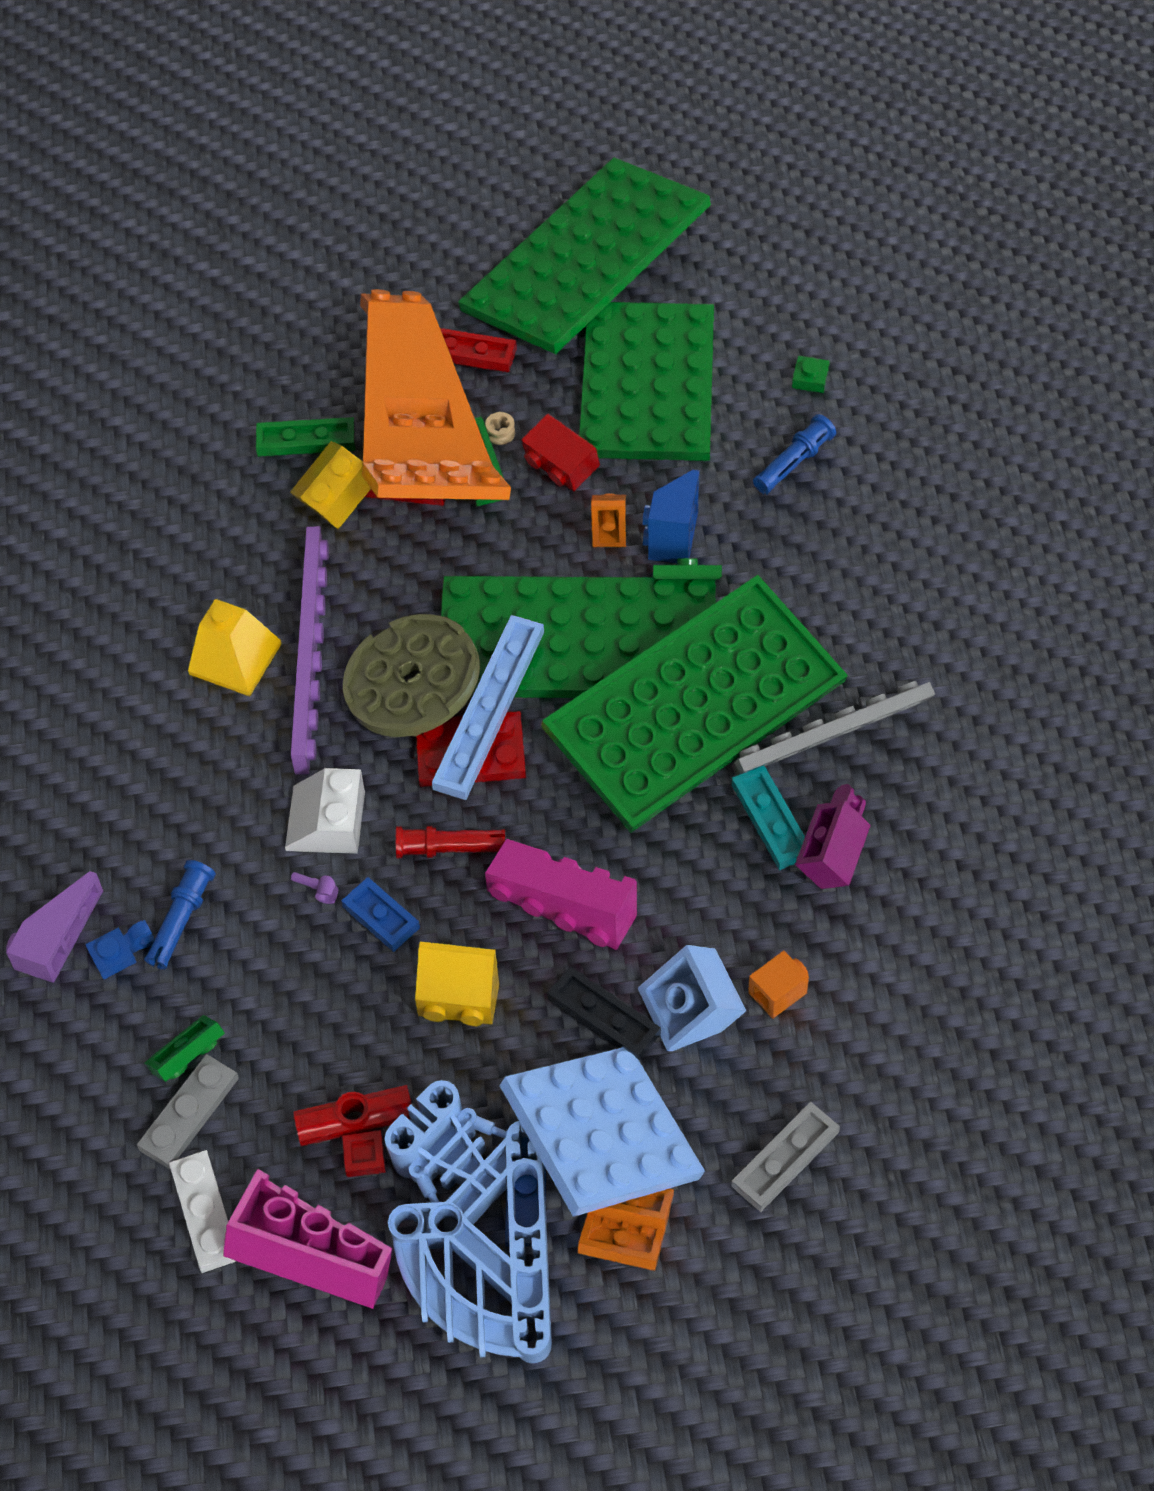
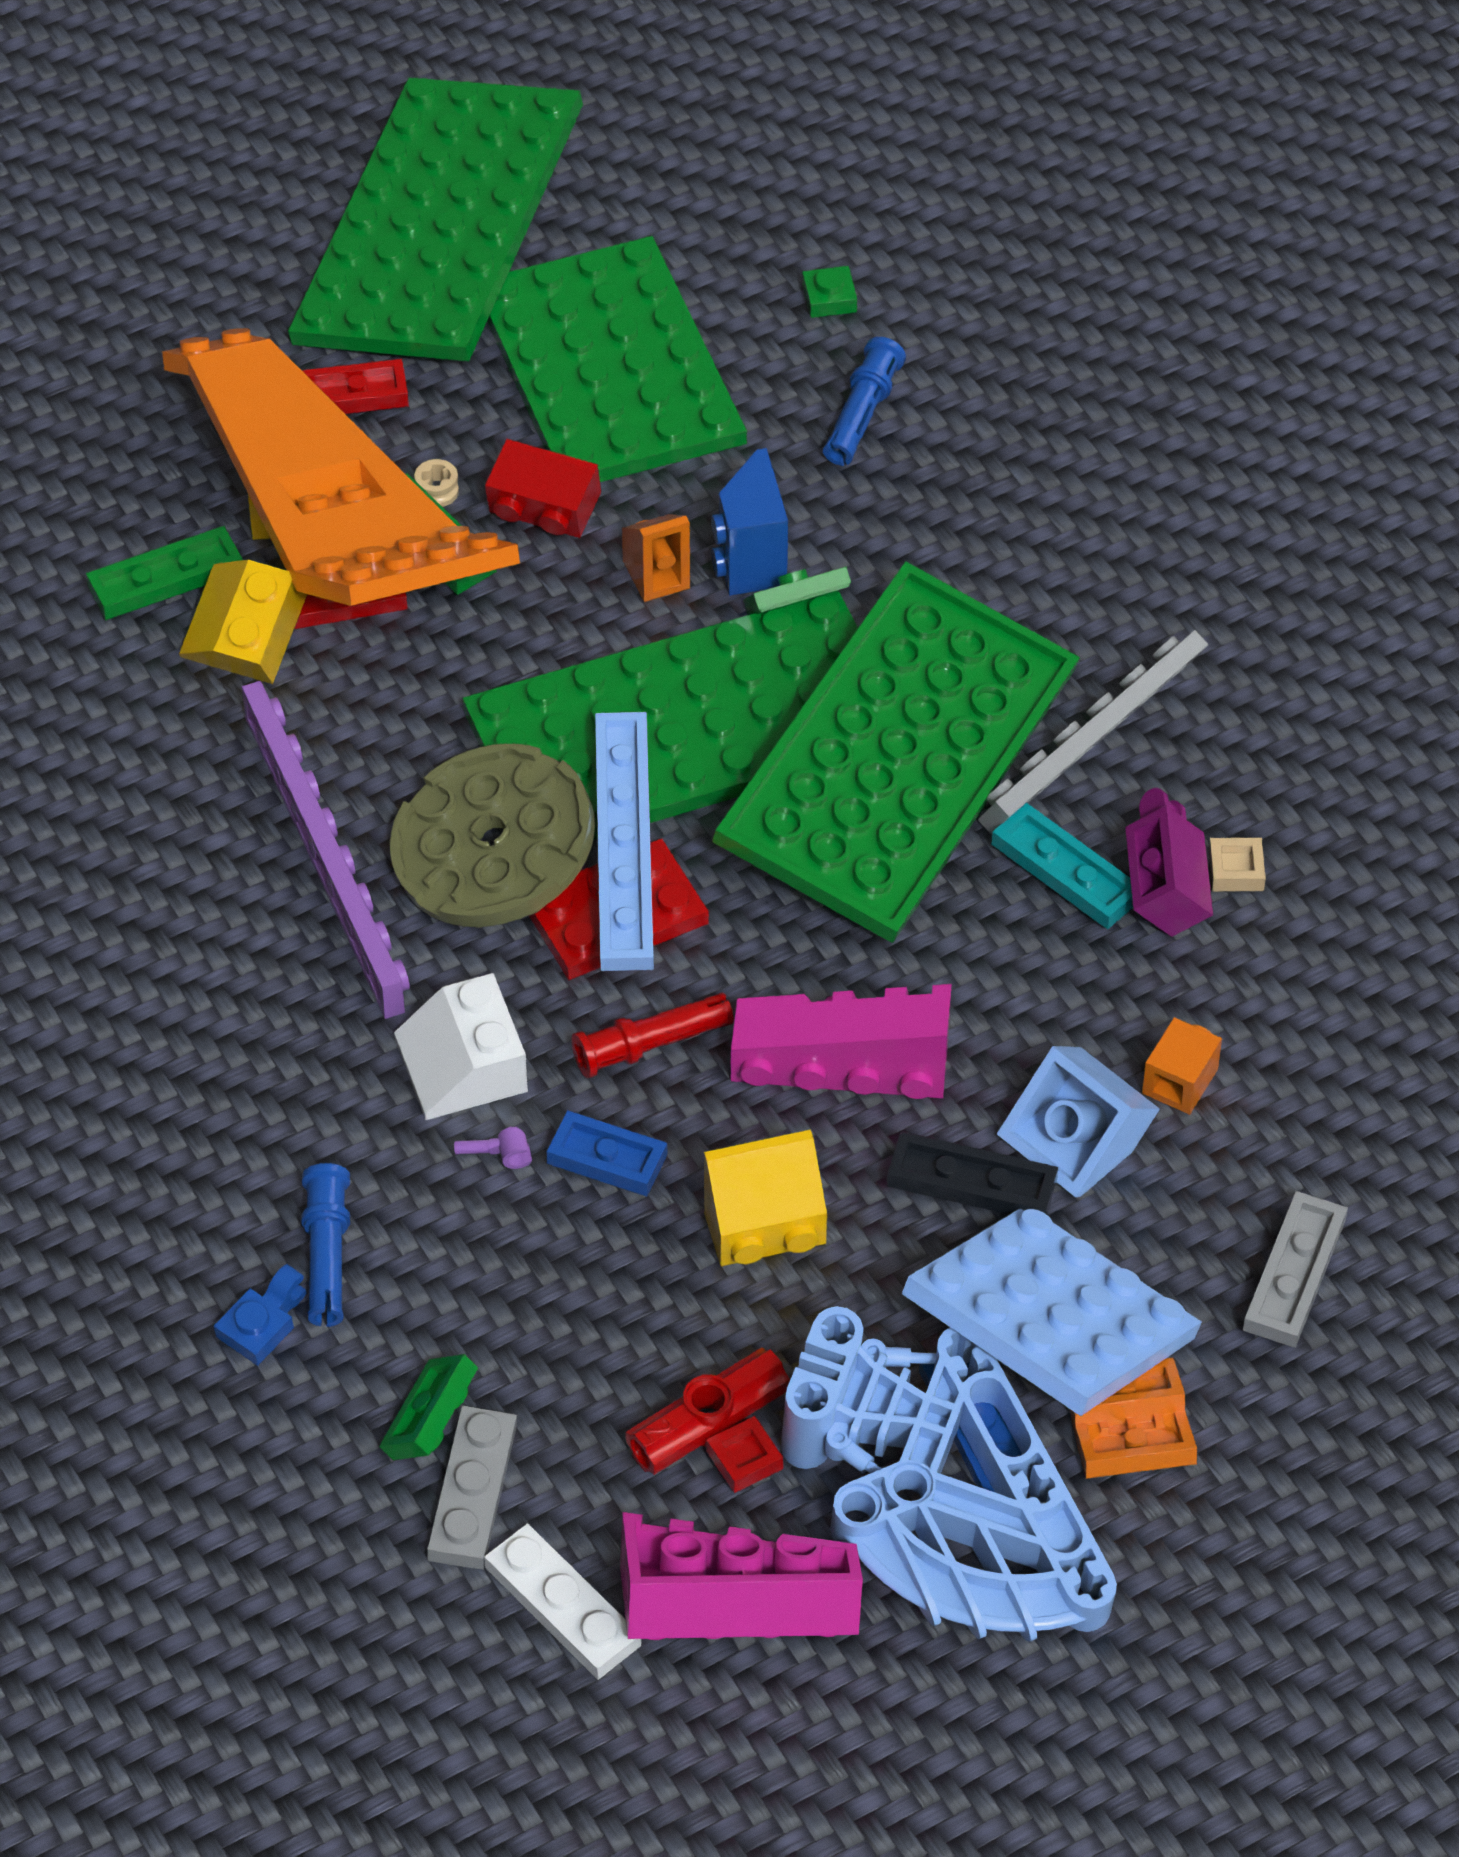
camera: 25 degrees left, 5 degrees down
(52, 931) = (156, 1325): medium lavender slope -> none
(232, 648) = (213, 881): yellow slope -> none
(885, 854) = (1236, 864): none -> tan plate

